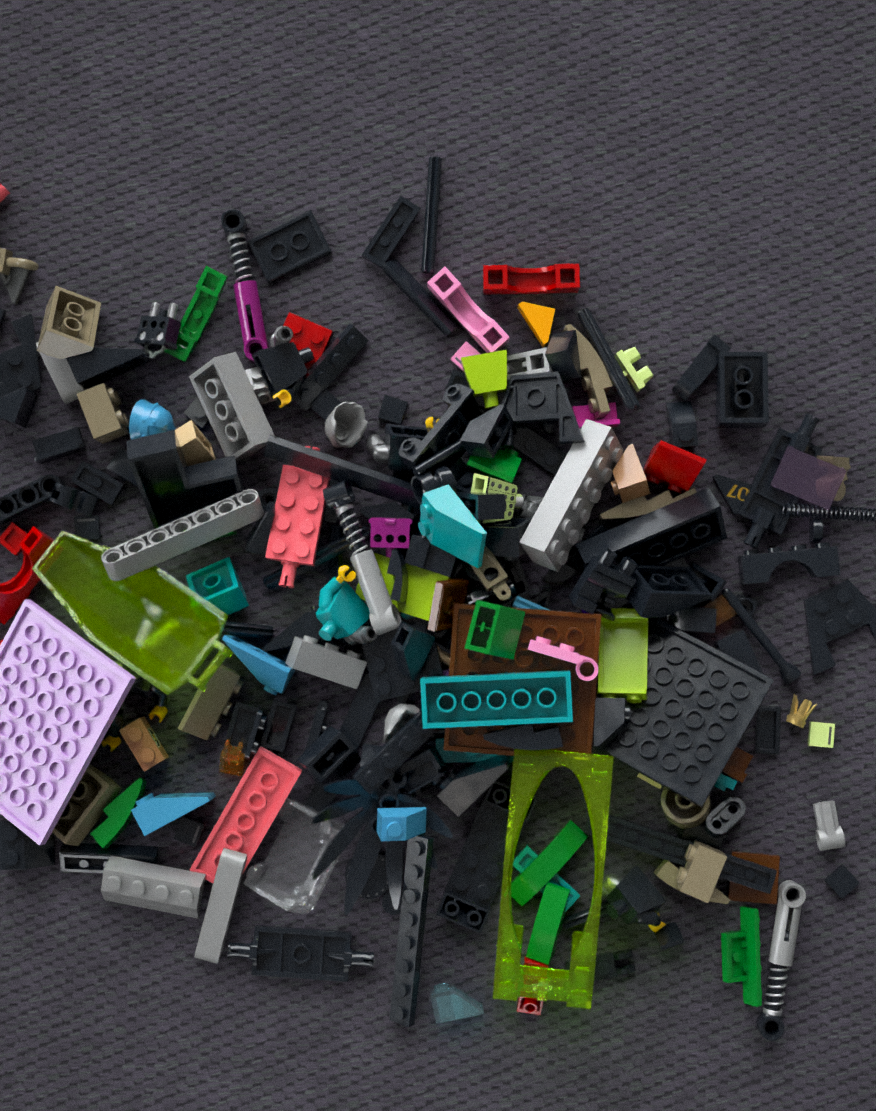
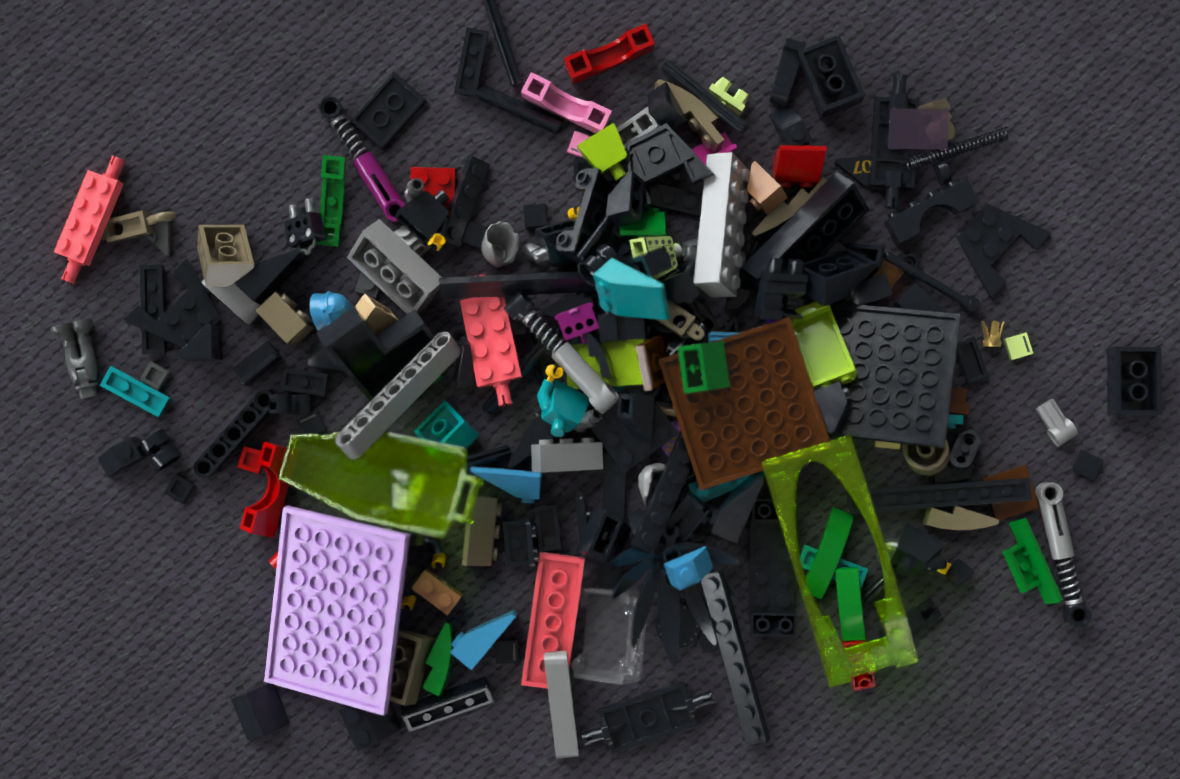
camera: 25 degrees left, 0 degrees up
(153, 886) = (495, 712): light grey slope -> none
(232, 759) = (519, 574): clear orange plate -> none
(452, 1003) = (796, 707): clear light blue slope -> none
(496, 699) = (730, 426): teal brick -> none
(524, 737) = (767, 449): black slope -> none
(538, 319) = (630, 87): light orange slope -> none
(565, 653) = (772, 362): bright pink plate -> none
(700, 871) = (964, 504): dark tan brick -> none

